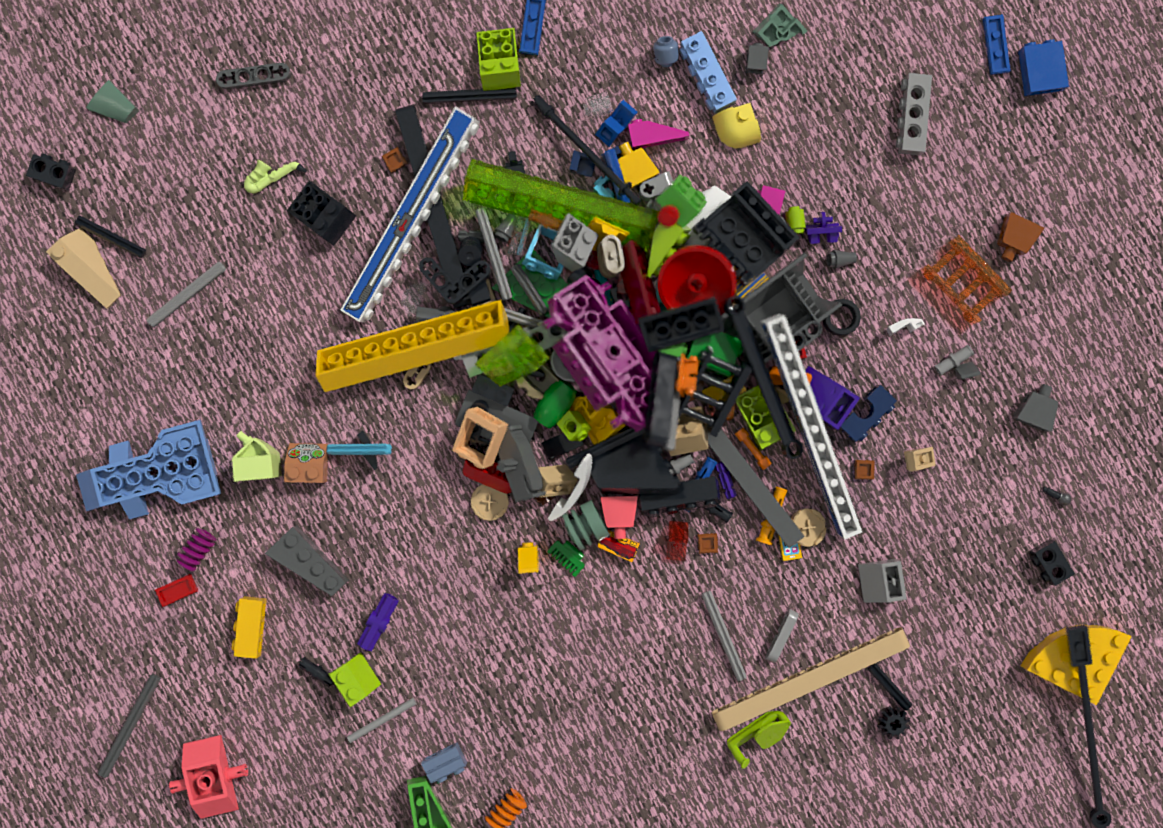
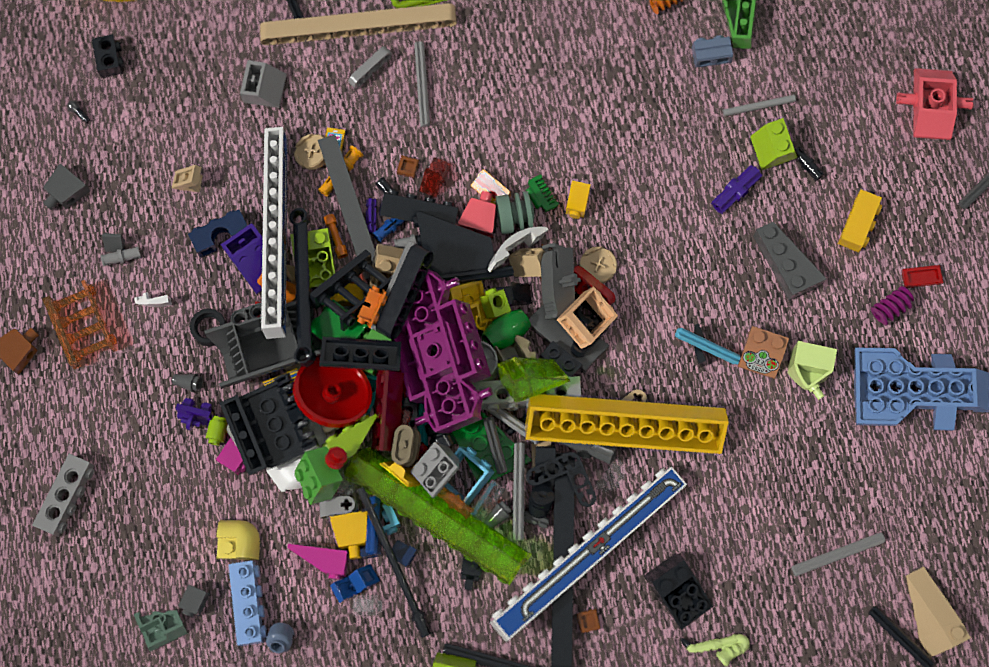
camera: 160 degrees left, 15 degrees down
(864, 469) = (241, 186): dark orange tile -> none

